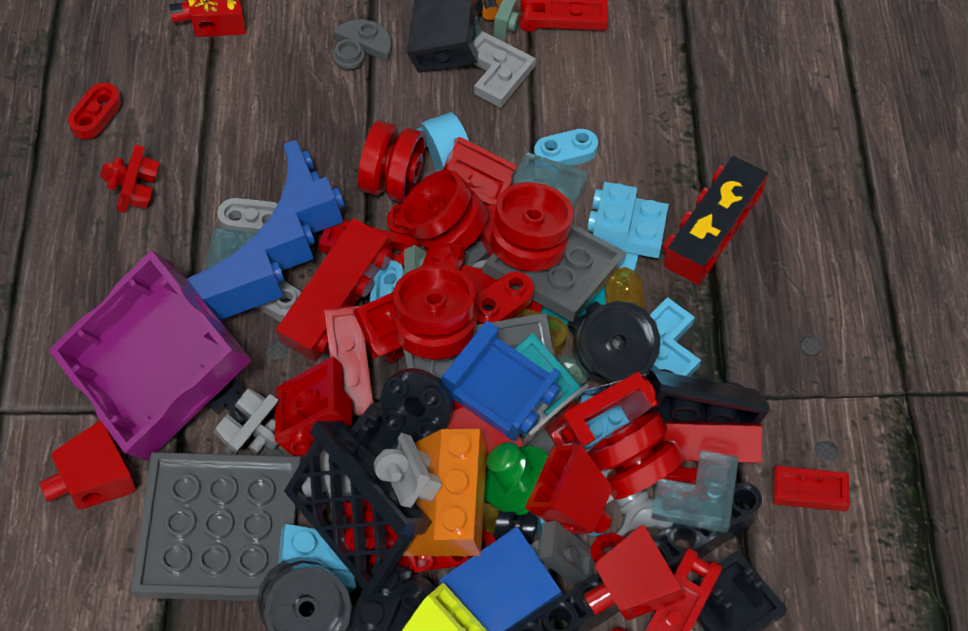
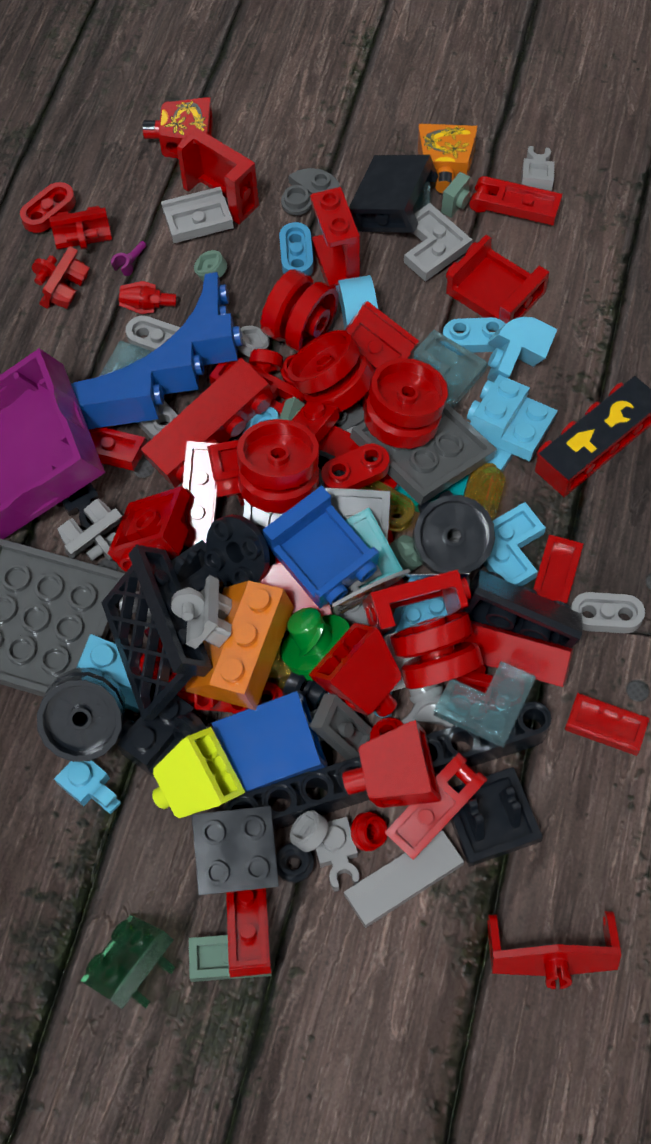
camera: 20 degrees right, 5 degrees up
(136, 124) = (80, 227): none -> red hips
(194, 146) = (127, 259): none -> magenta hand
(225, 180) = (144, 297): none -> red piece
(252, 88) = (197, 214): none -> light grey plate
(252, 334) = (118, 447): none -> red plate
(266, 39) = (216, 165): none -> red panel
(281, 133) = (210, 262): none -> sand green tile
(354, 201) = (253, 339): none -> light grey tile
(366, 106) = (296, 254): none -> dark azure plate
(371, 215) = (266, 360): none -> red tile
(412, 91) = (340, 243): none -> red panel
(569, 97) = (494, 284): none -> red panel
(614, 145) = (519, 339): none -> medium azure brick
(717, 352) = (558, 568): none -> red tile
(775, 380) = (606, 612): none -> light grey plate

